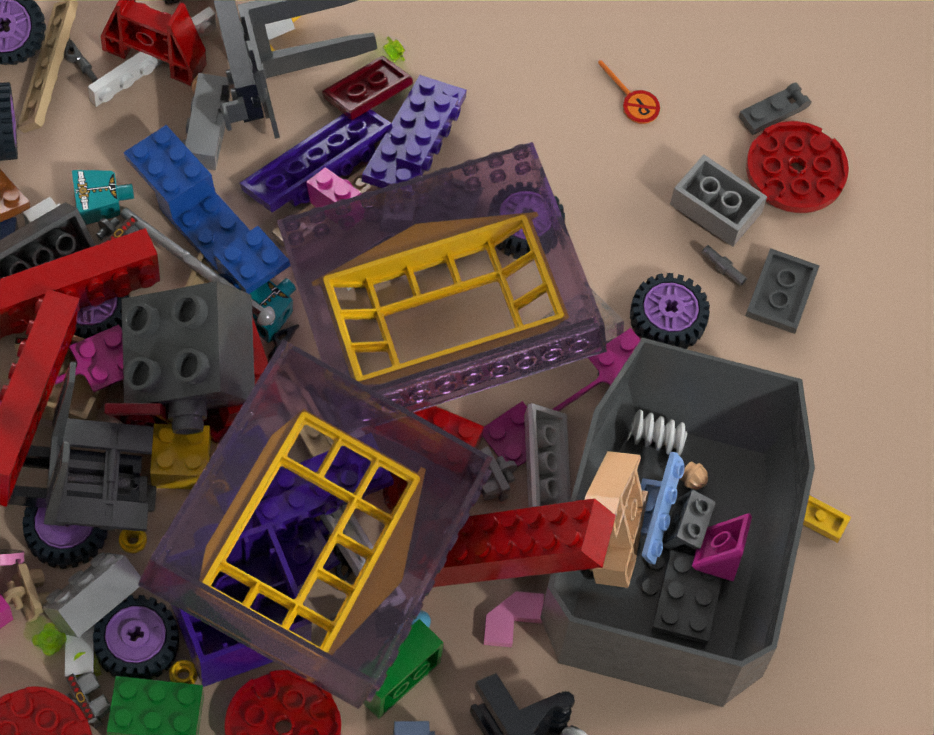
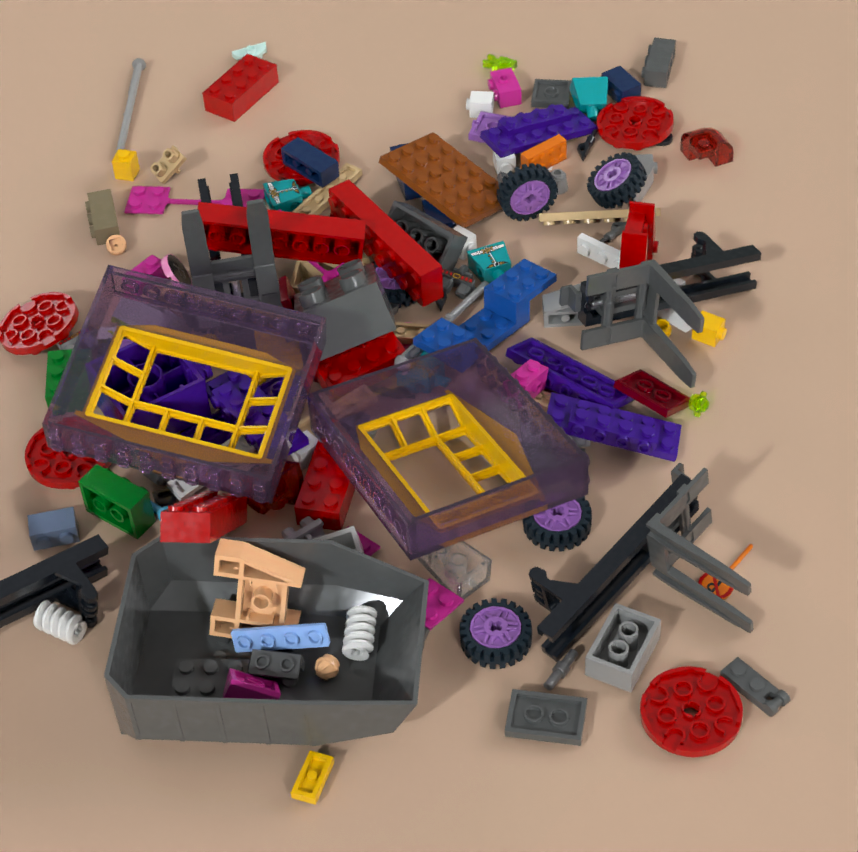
camera: 90 degrees right, 15 degrees down
(618, 141) = (648, 540): none -> piece

